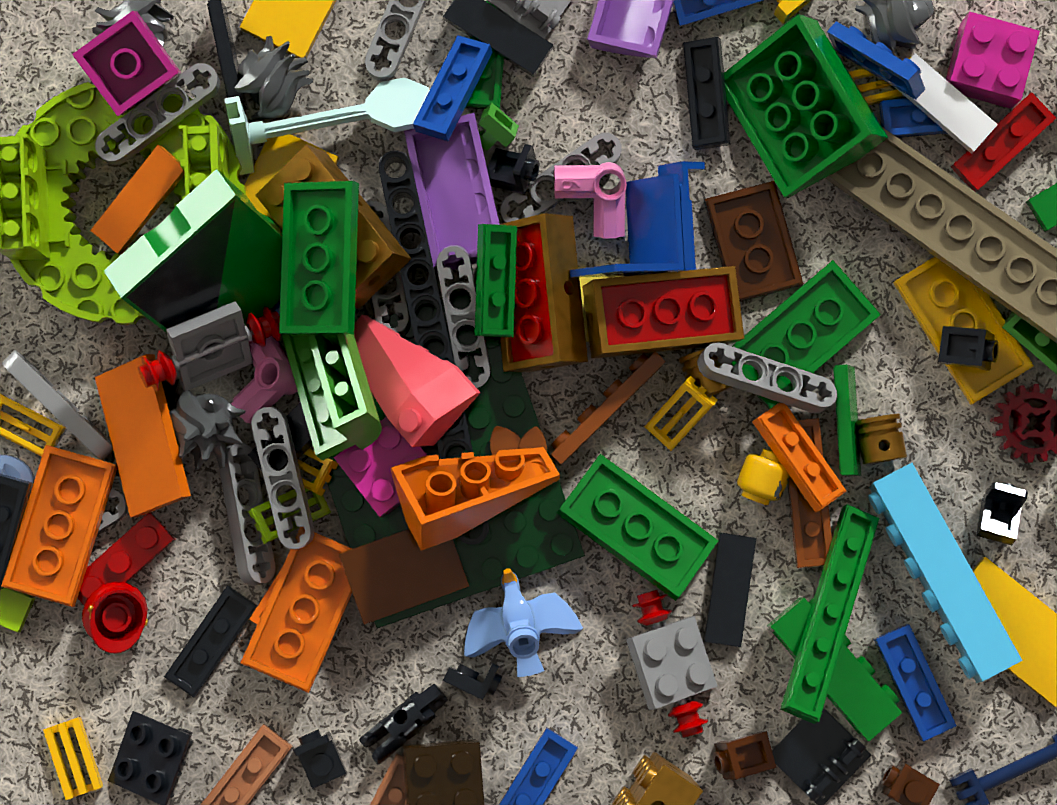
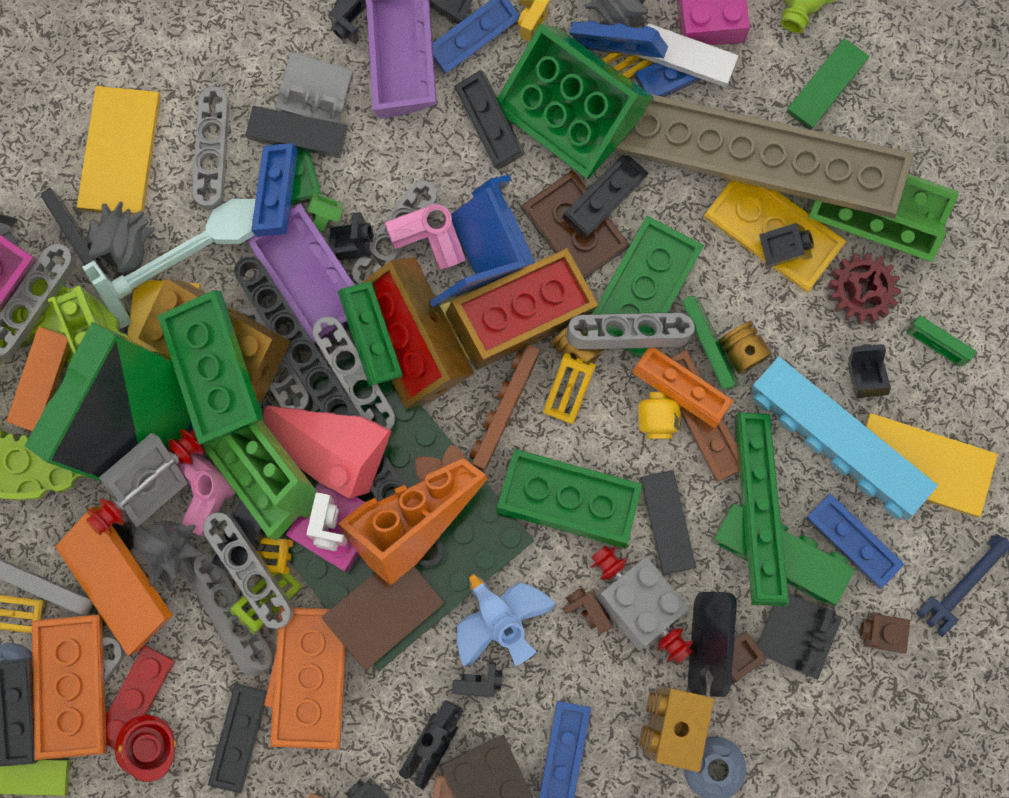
camera: 20 degrees left, 5 degrees down
(378, 456) = (323, 517): none -> white bracket
(618, 654) = (595, 613): none -> reddish brown bracket
(726, 730) = (713, 642): none -> black piece
(797, 222) = (605, 195): none -> black tile
(1004, 142) = (749, 69): red plate -> none

